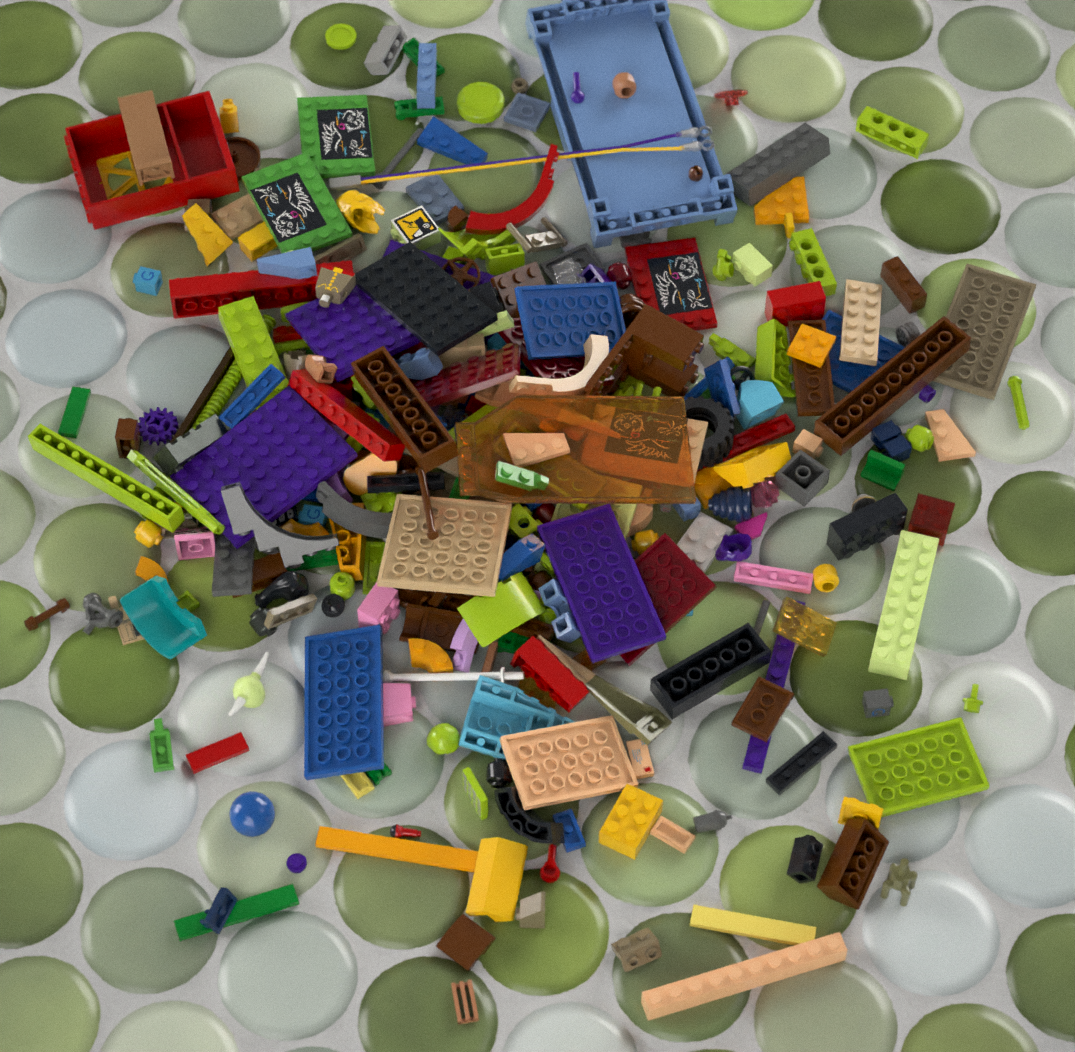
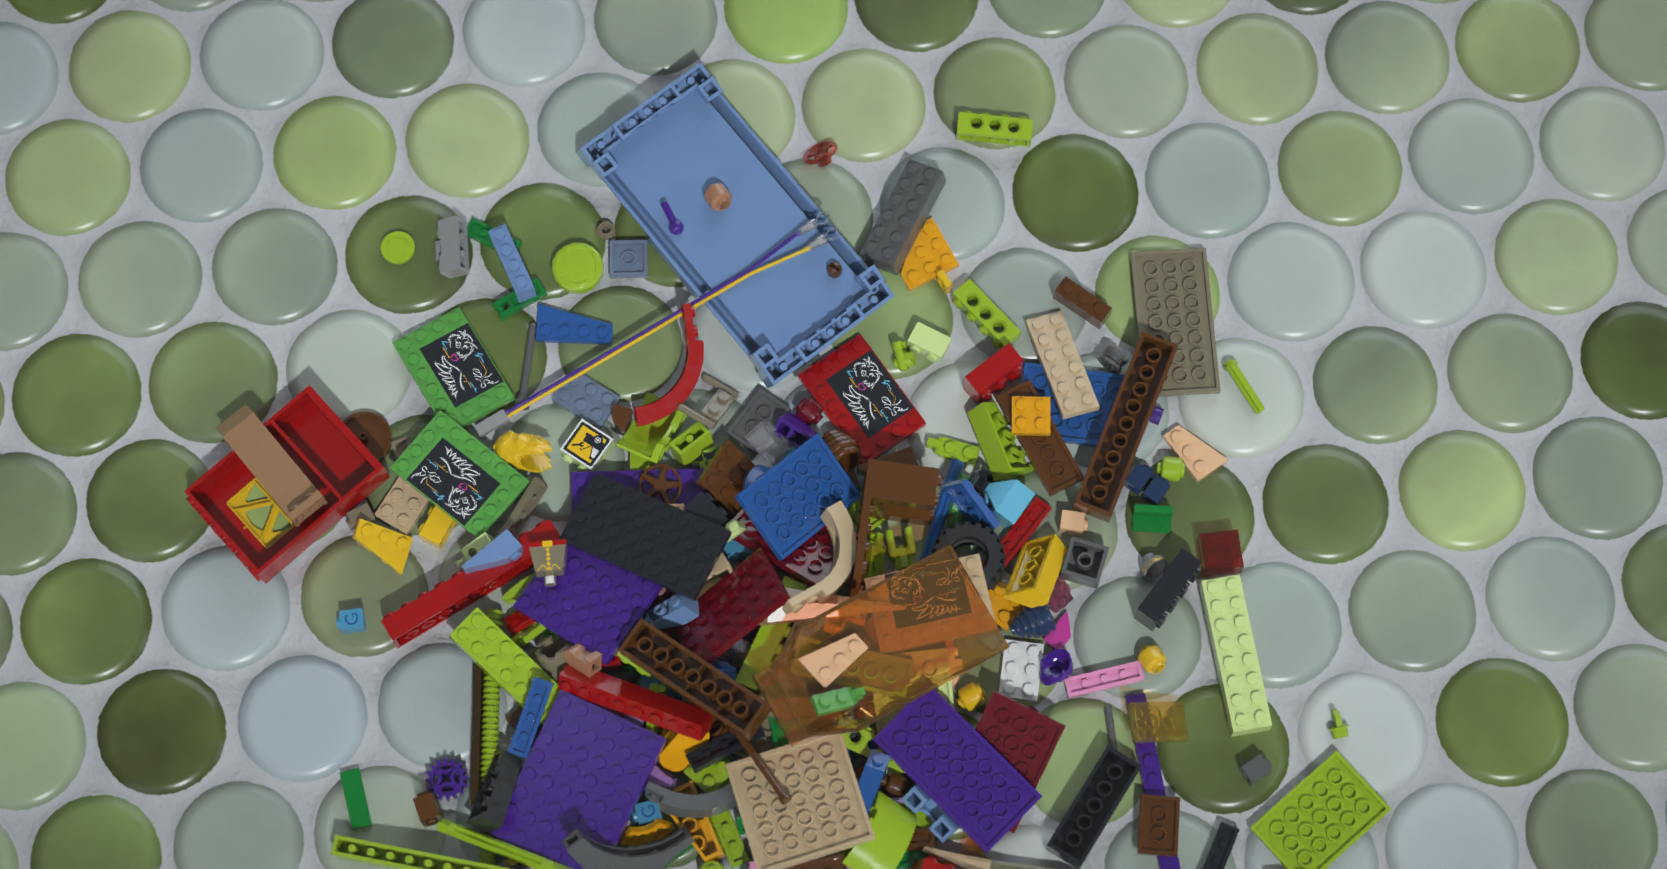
camera: 25 degrees left, 15 degrees up
(229, 116) = (335, 395): yellow brick -> none

